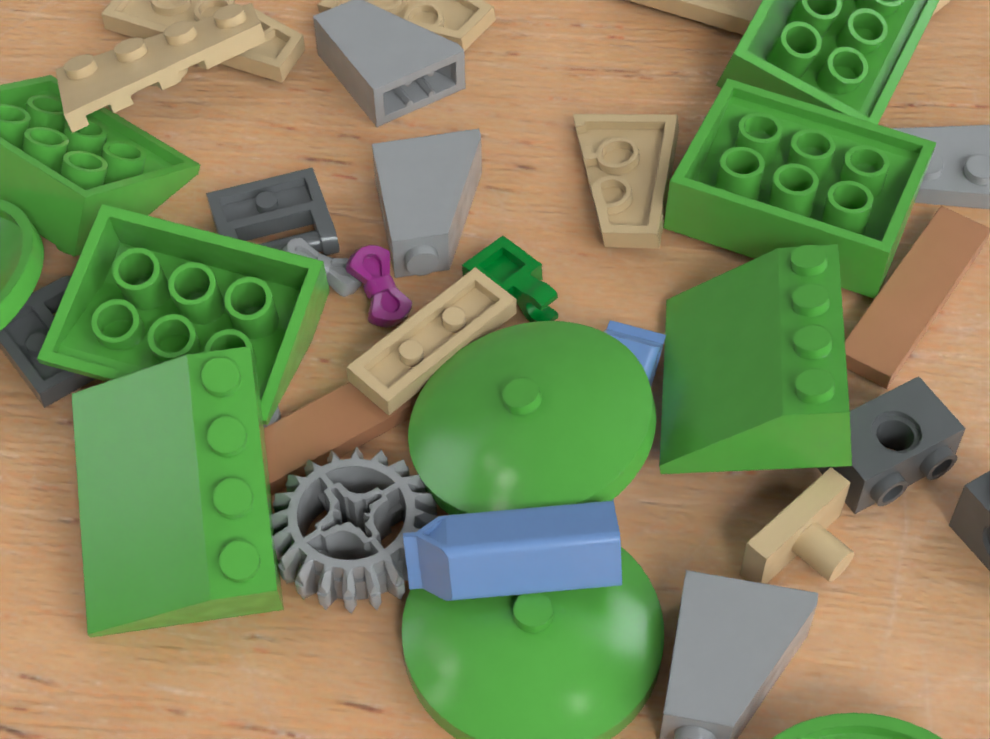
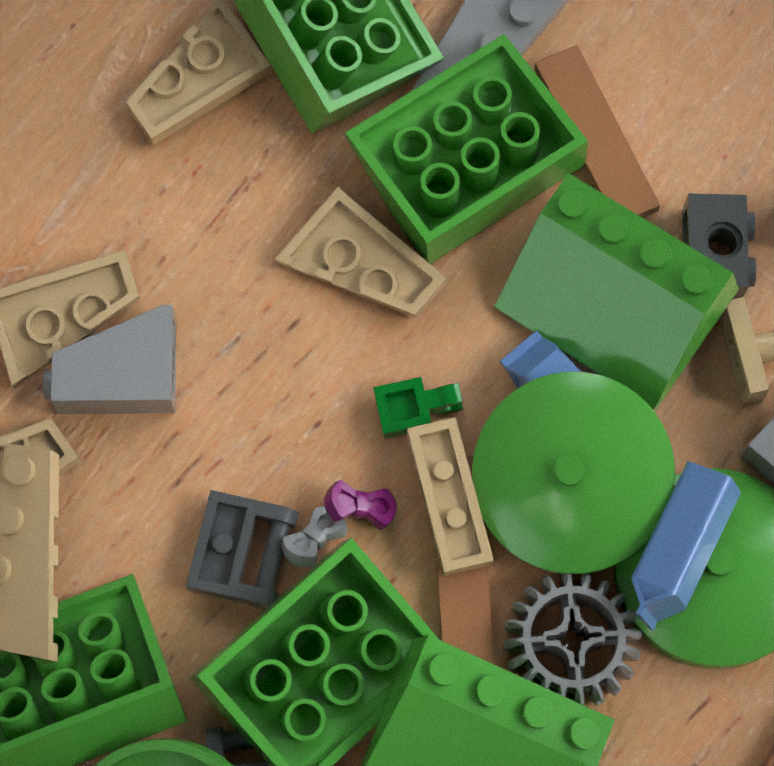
camera: 60 degrees left, 20 degrees up
(426, 197) = (296, 422): light grey slope -> none

